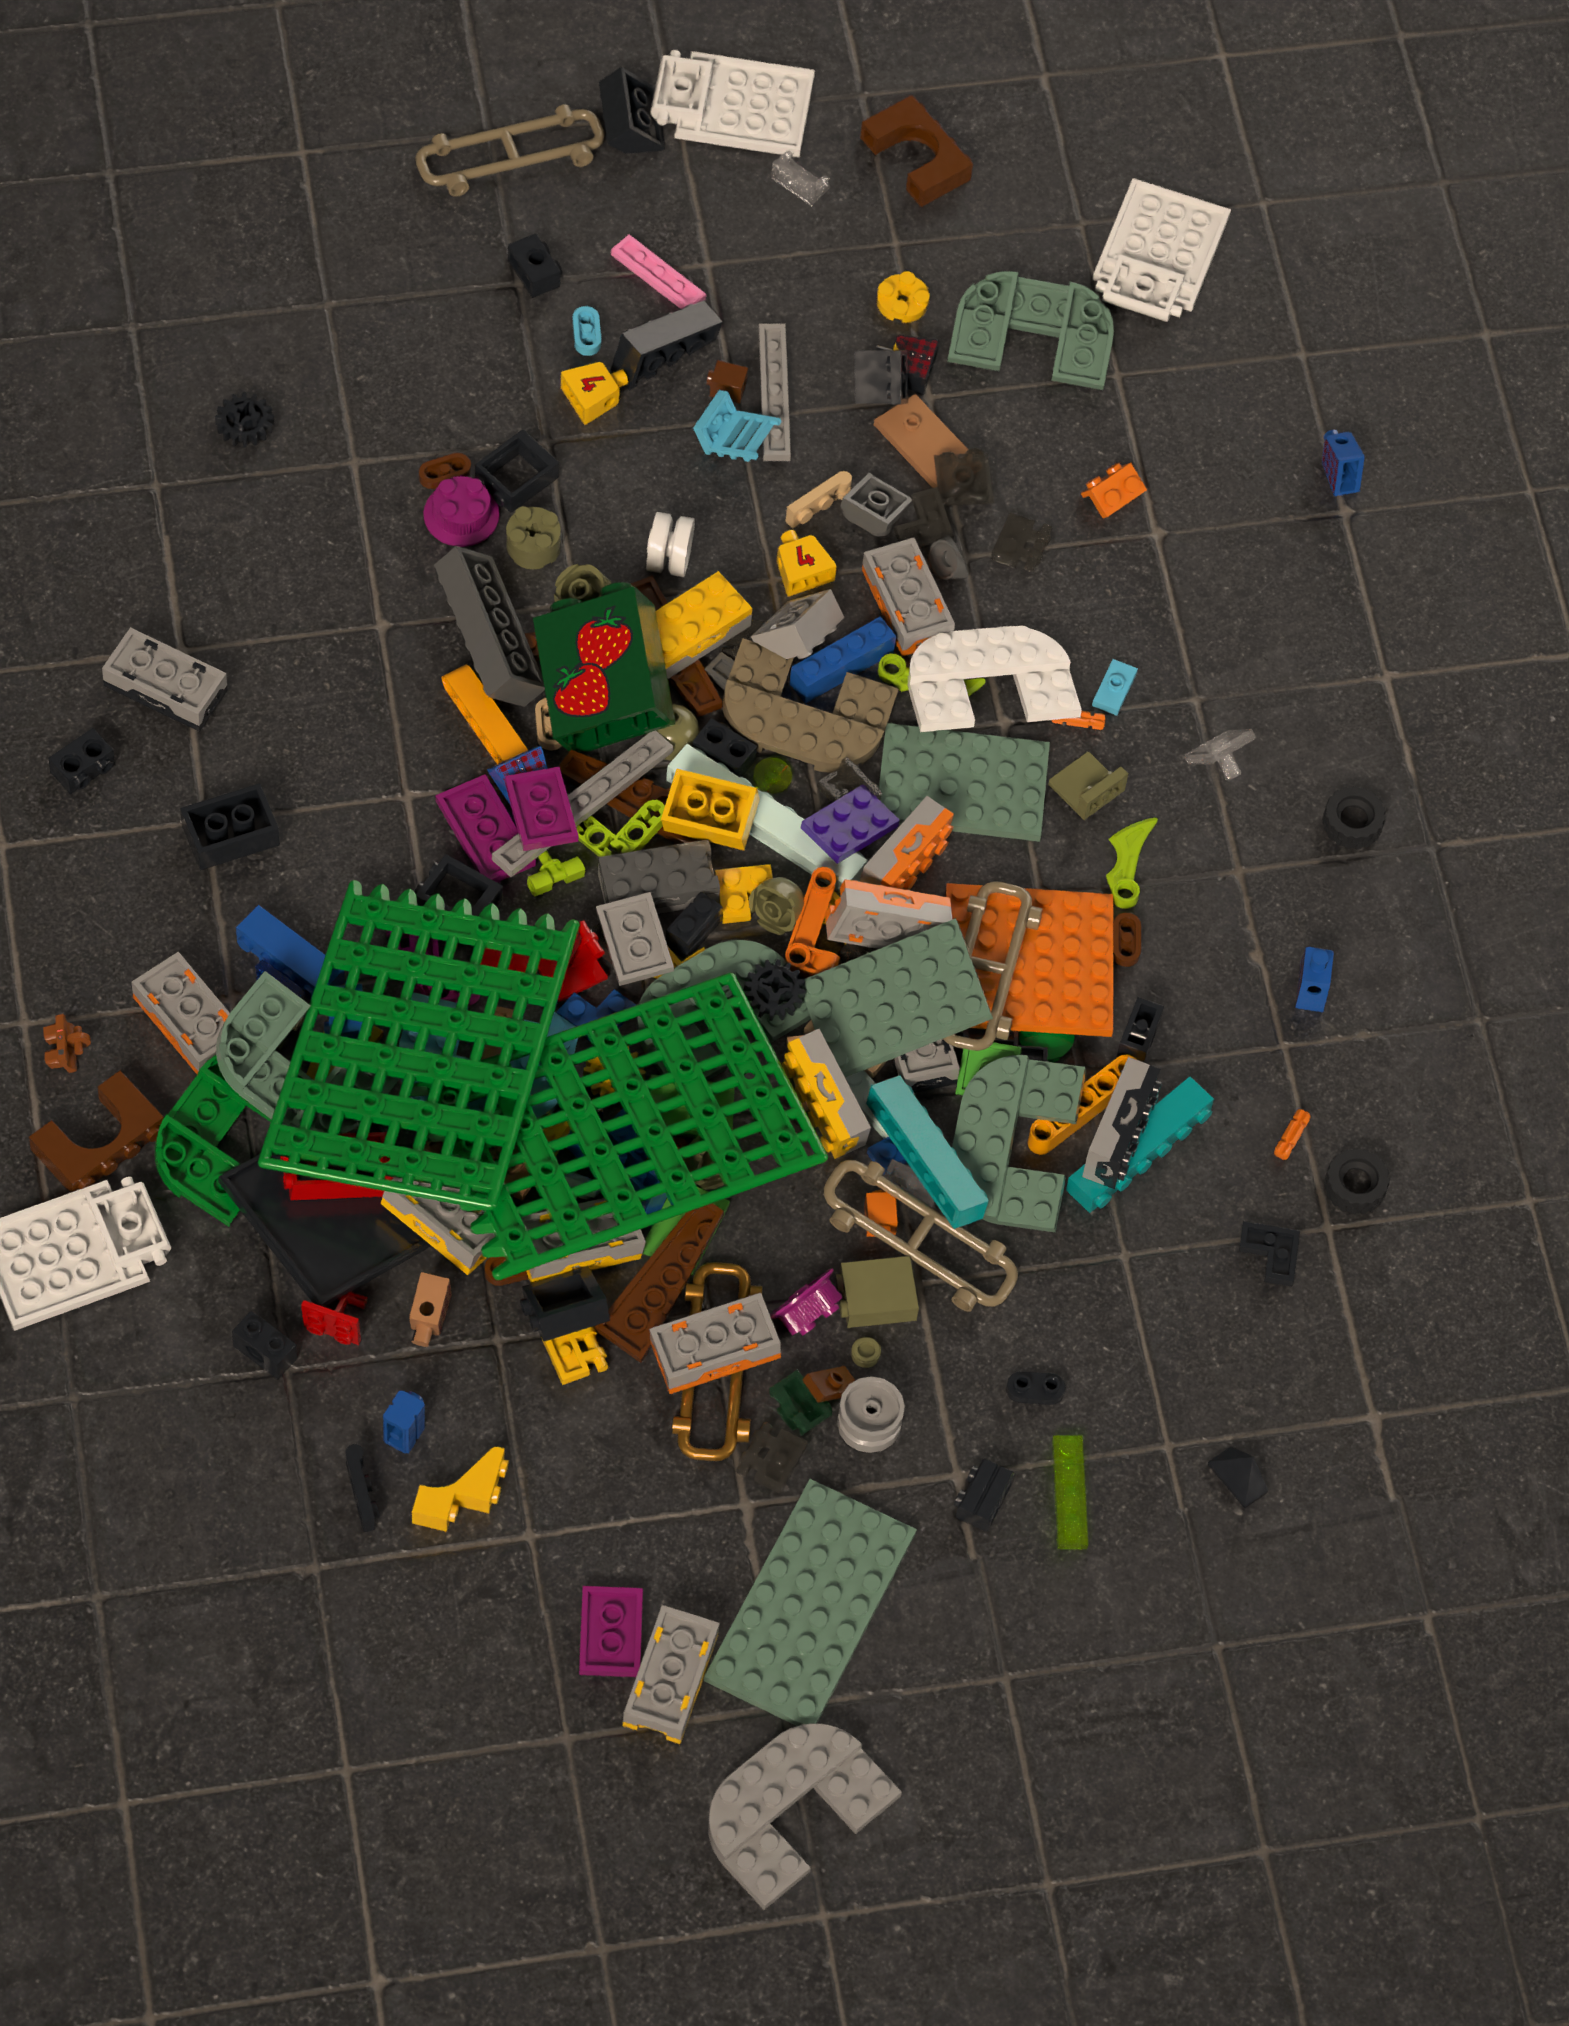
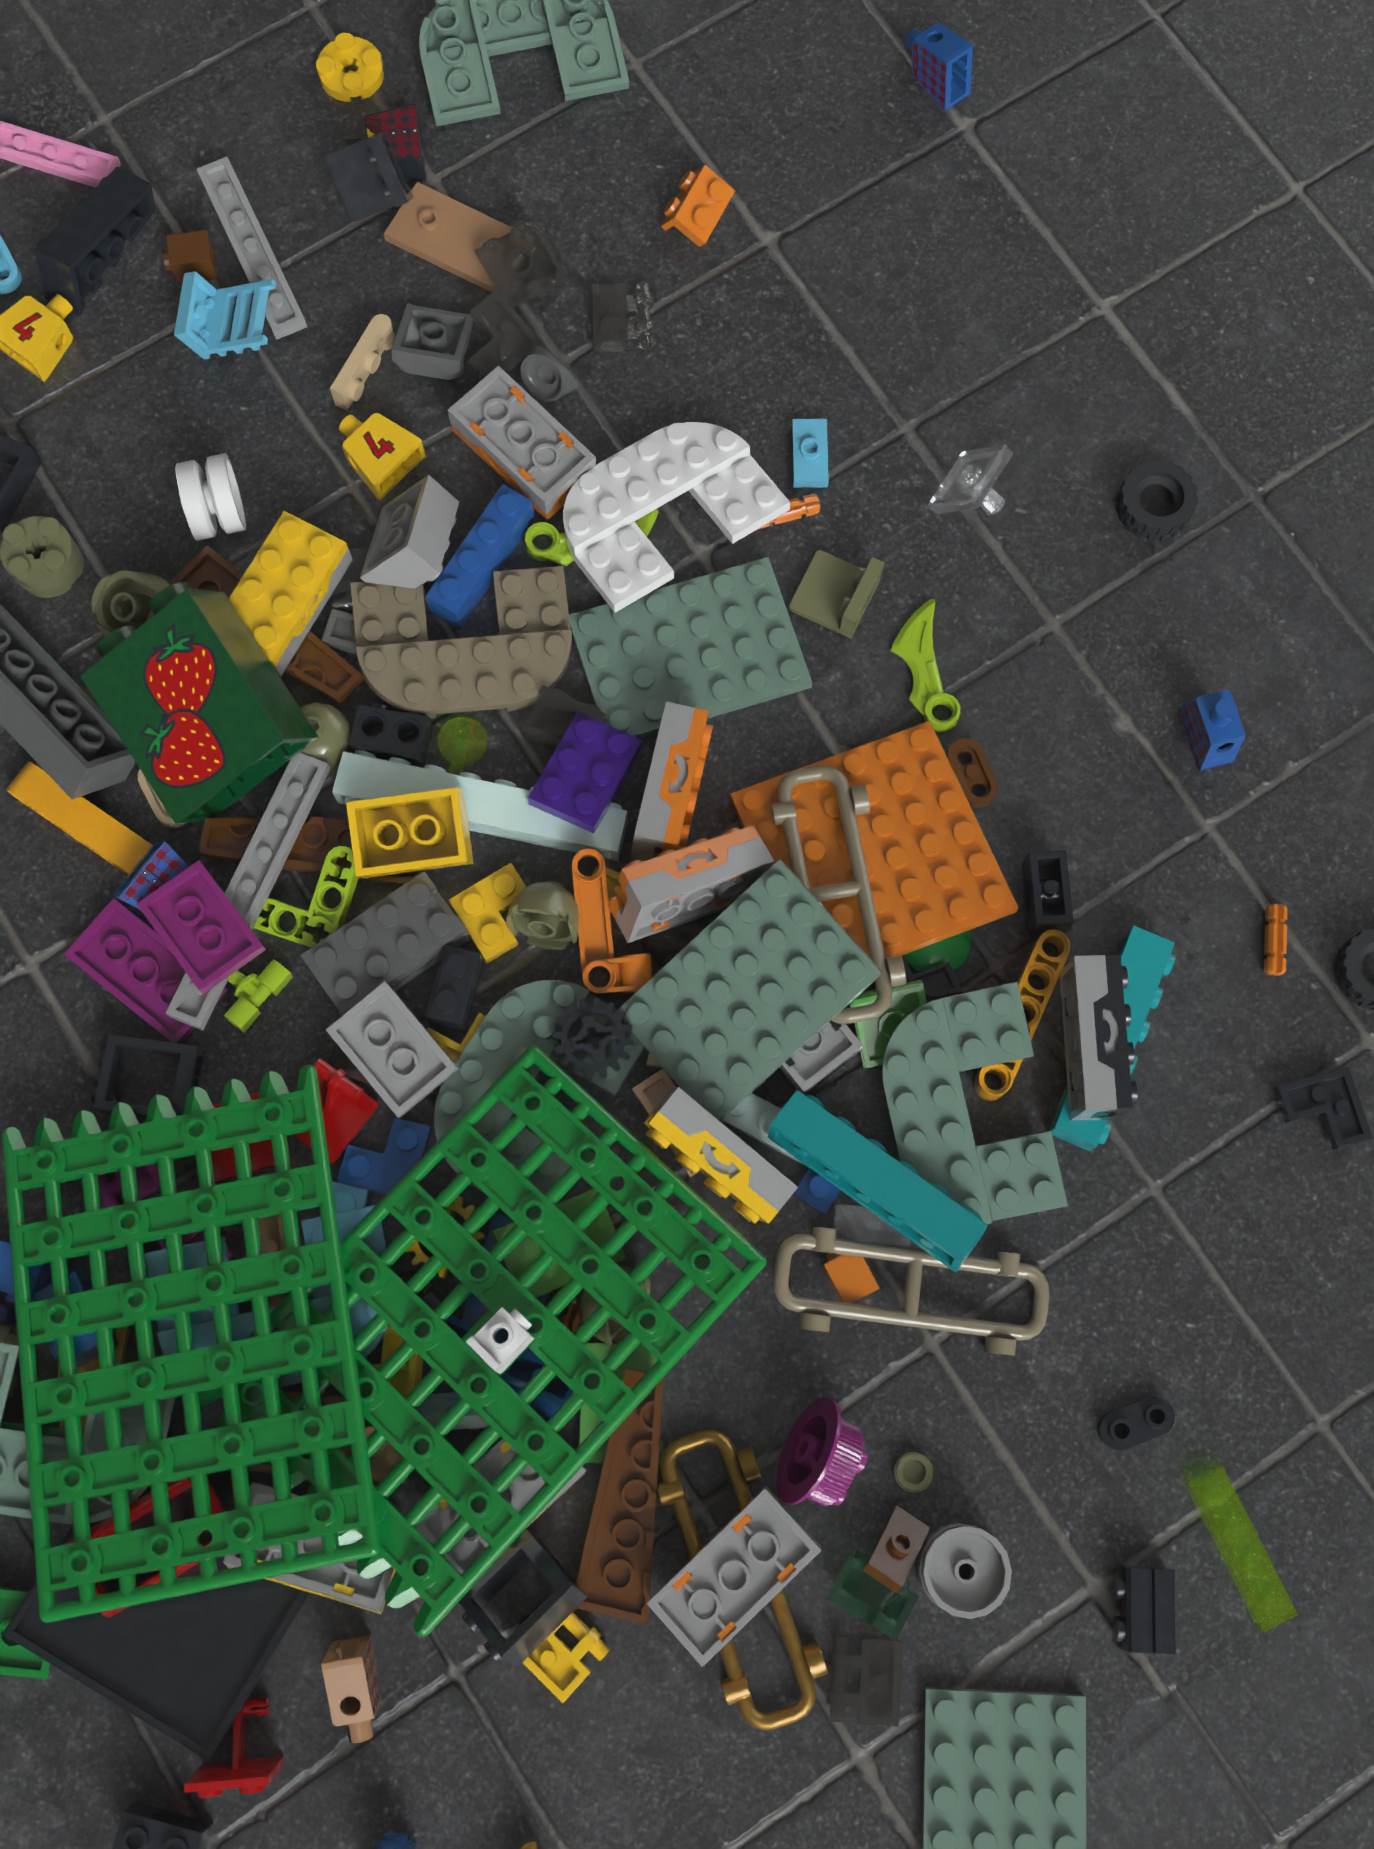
camera: 20 degrees left, 15 degrees up
(630, 1125) = (502, 1355): none -> white brick
(877, 1292) = (893, 1387): olive brick -> none

